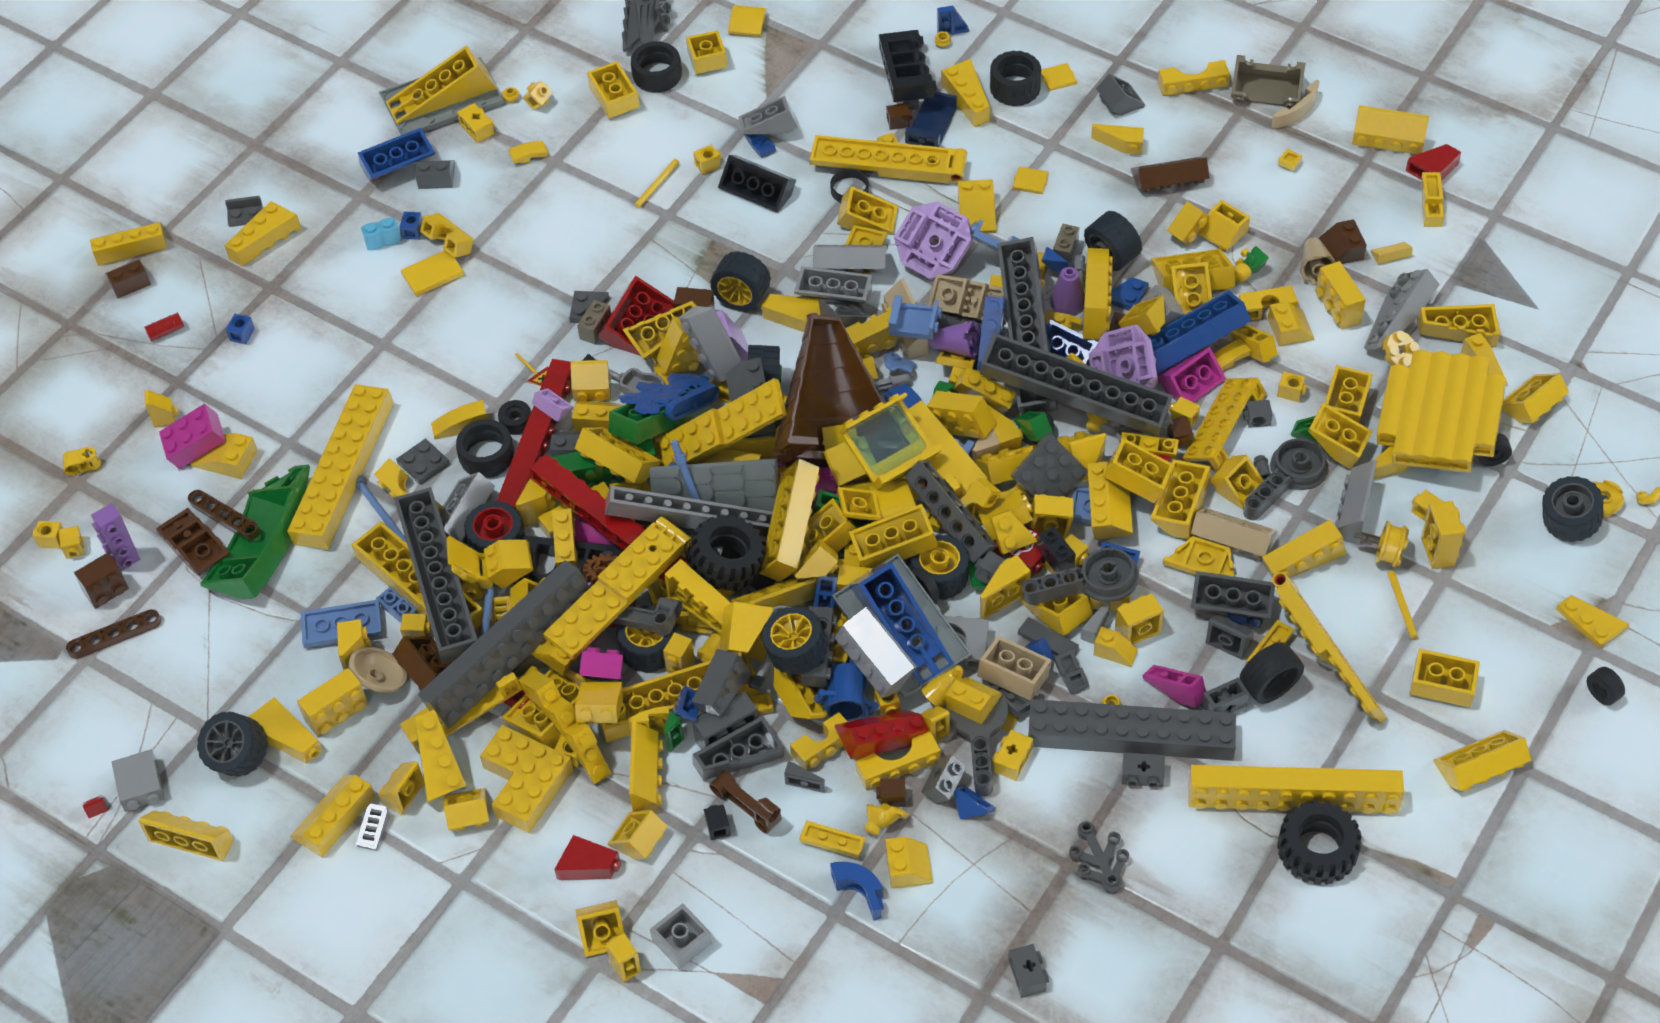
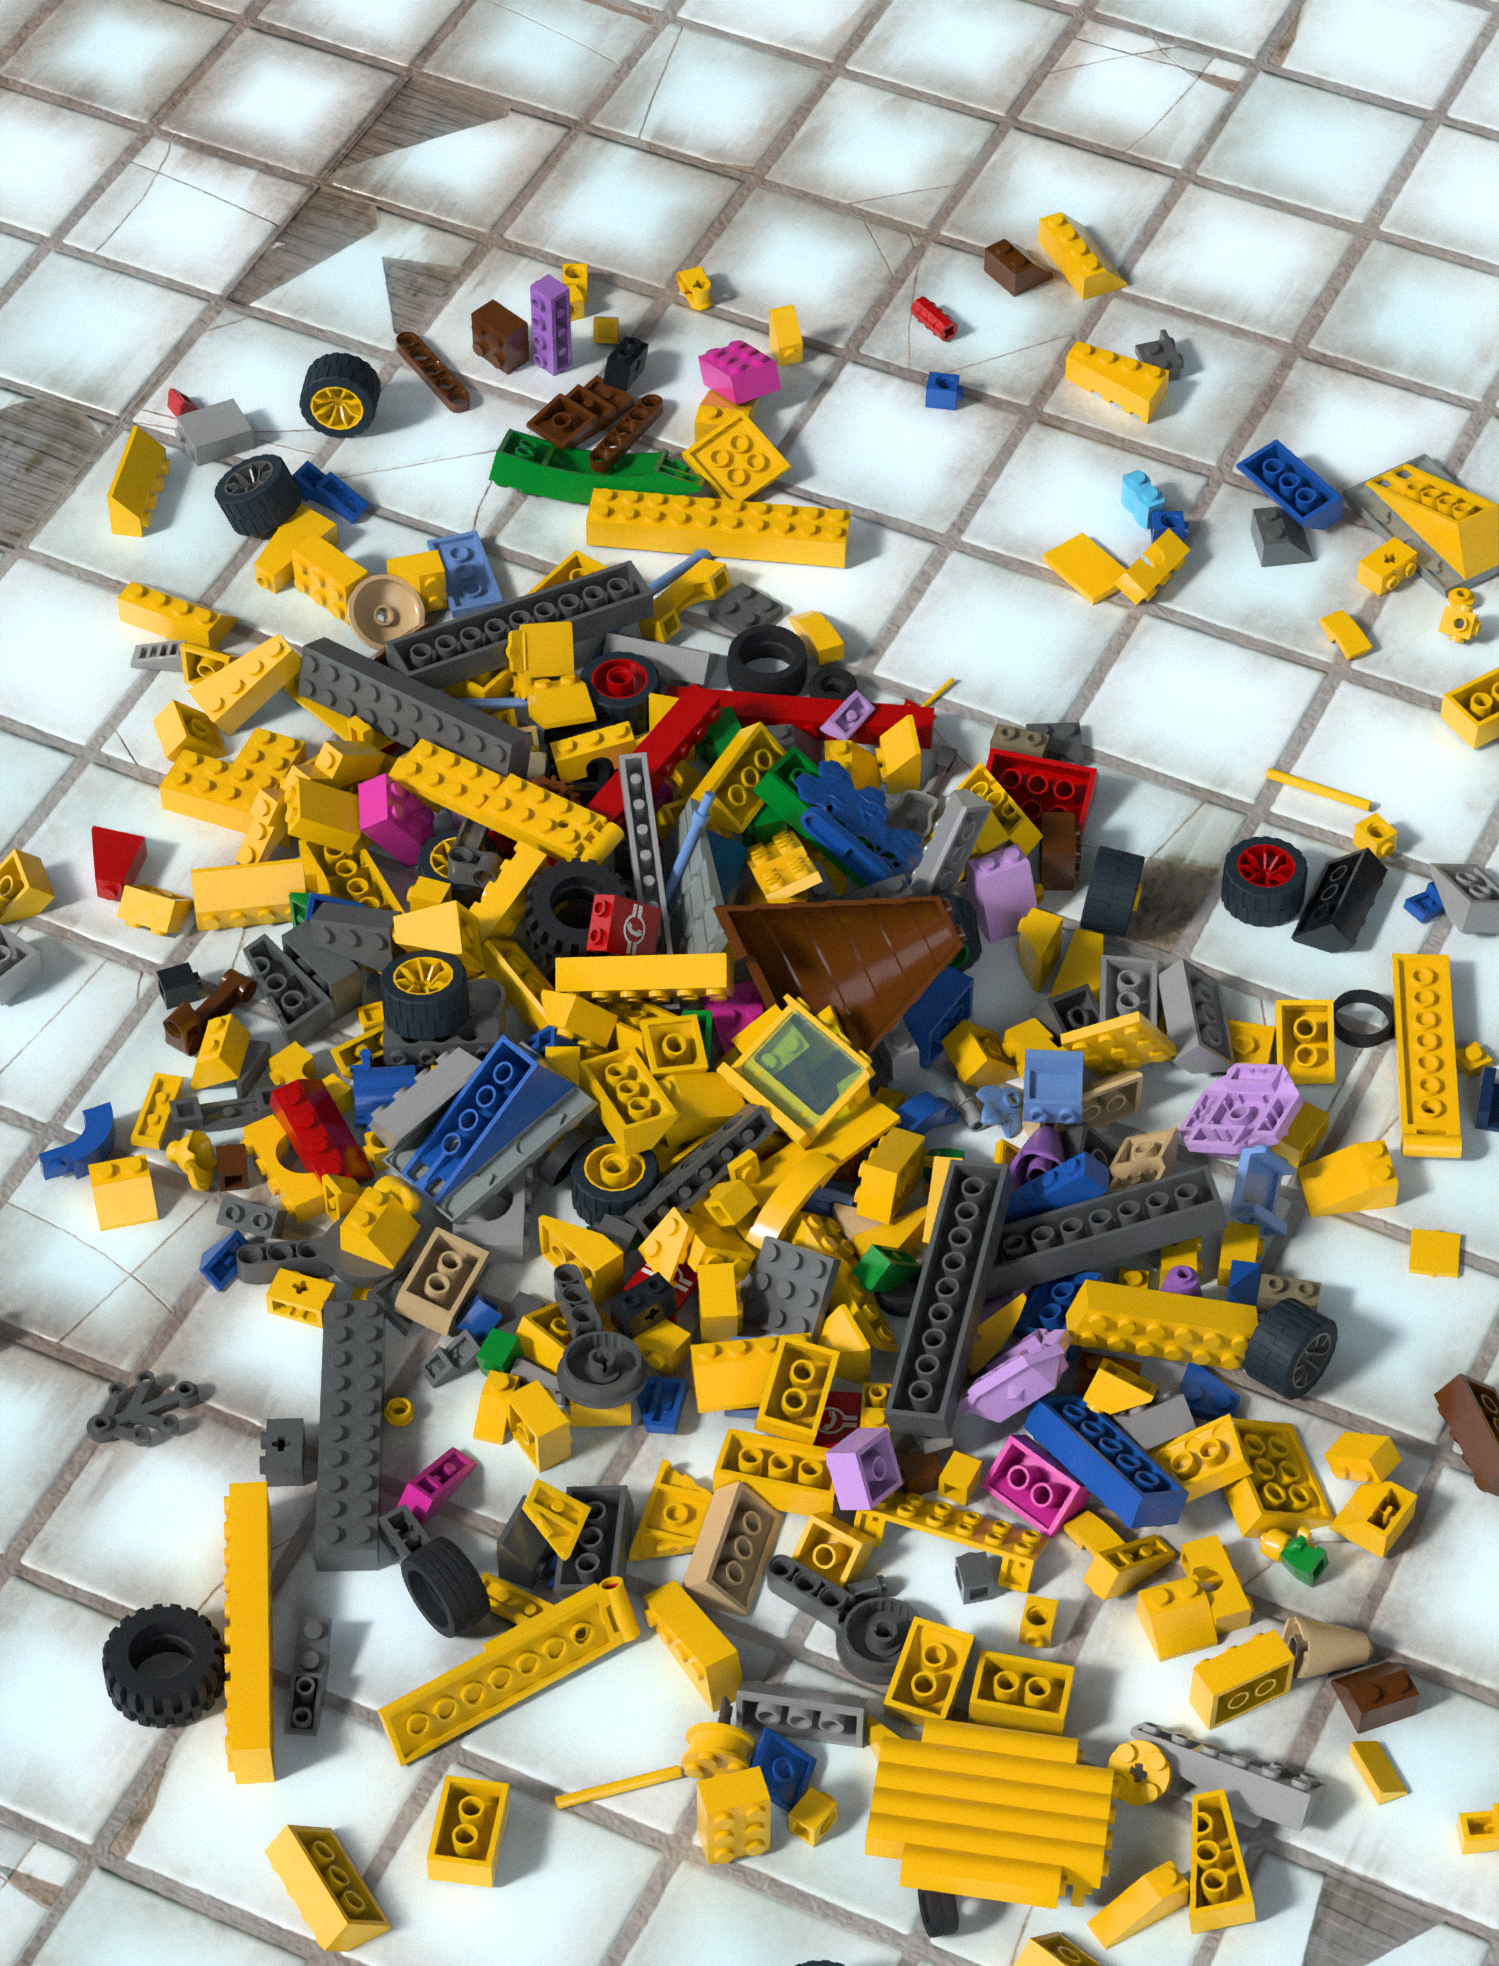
camera: 80 degrees right, 5 degrees down
(138, 684) = (340, 395): none -> black wheel
(155, 505) = (625, 363): none -> black brick
(233, 701) = (329, 492): none -> blue slope
(281, 446) = (736, 459): none -> yellow plate
(738, 212) = (1264, 881): none -> black wheel
(754, 523) = (623, 926): none -> red panel
(776, 326) = (1039, 945): none -> yellow slope
(794, 794) = (220, 1052): none -> yellow slope
(838, 791) = (222, 1114): none -> dark grey slope
(879, 285) = (1119, 1044): none -> yellow plate
(981, 462) = (790, 1197): none -> yellow slope
(1079, 638) = (499, 1352): none -> green brick
(1195, 446) = (863, 1468): none -> lavender brick
(1225, 606) = (556, 1516): none -> yellow wing
(1311, 758) = (309, 1676): none -> dark grey slope
(1399, 517) = (784, 1768): none -> blue tile

